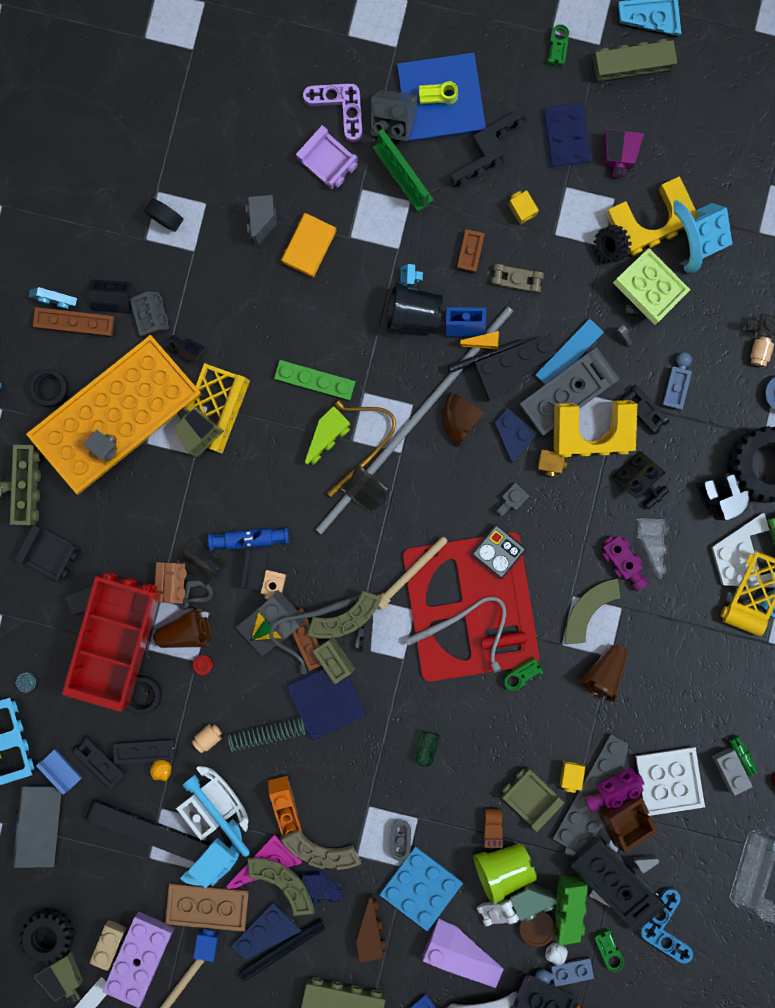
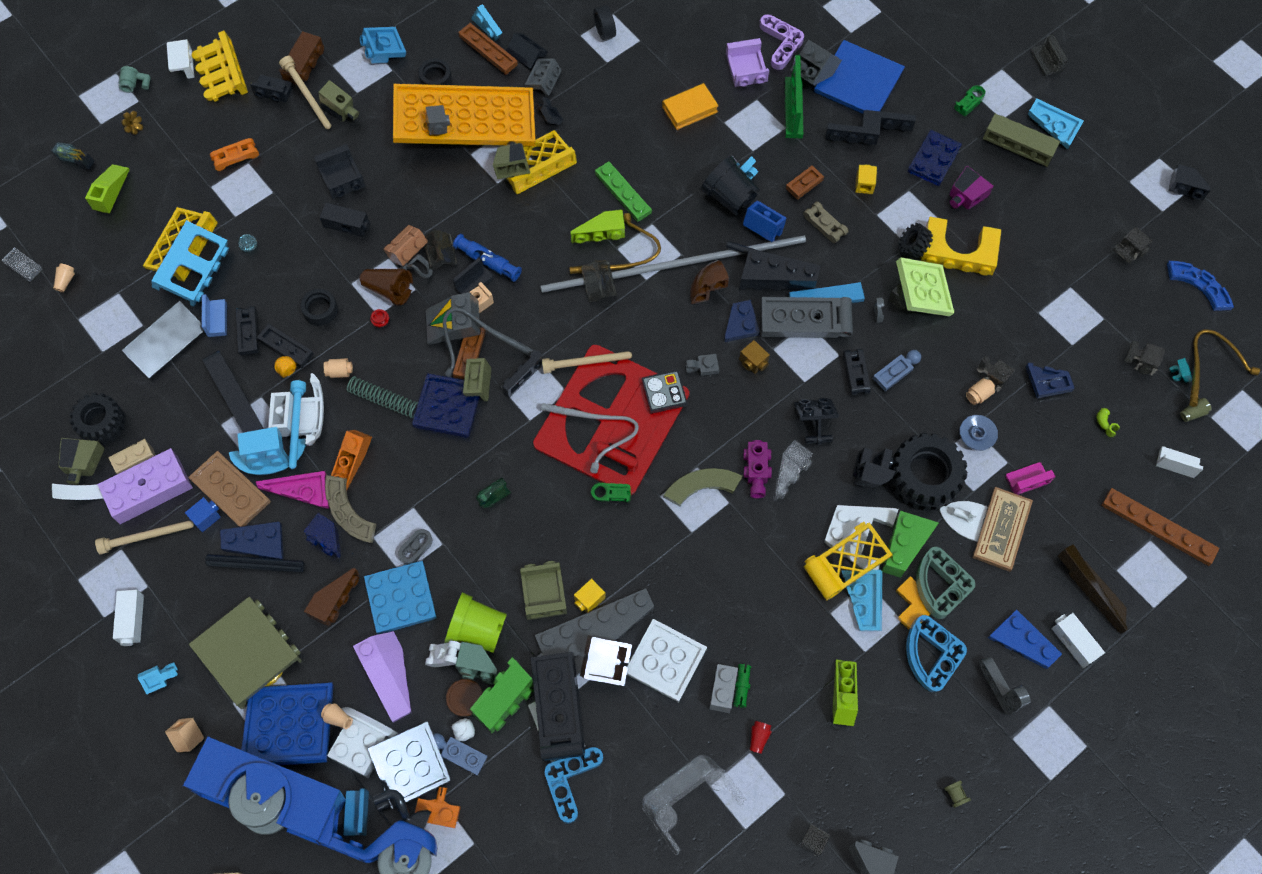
camera: 35 degrees right, 20 degrees down
(24, 485) = (363, 118): olive brick -> none
(112, 641) = (330, 244): red container -> none
(262, 217) = (670, 65): dark grey slope -> none
(285, 879) = (303, 506): olive tile -> none
(347, 622) = (510, 357): olive tile -> none
(435, 93) = (863, 72): neon yellow piece -> none
(485, 341) = (767, 242): light orange piece -> none
(493, 828) = (494, 590): dark orange leg -> none
(606, 673) = (677, 536): reddish brown cone -> none
(608, 949) = (508, 759): green piece -> none
(616, 790) = (617, 625): magenta brick -> none
(619, 438) = (780, 347): yellow arch -> none
(645, 862) = (594, 710): light grey slope -> none
(706, 233) = (991, 274): medium azure piece -> none

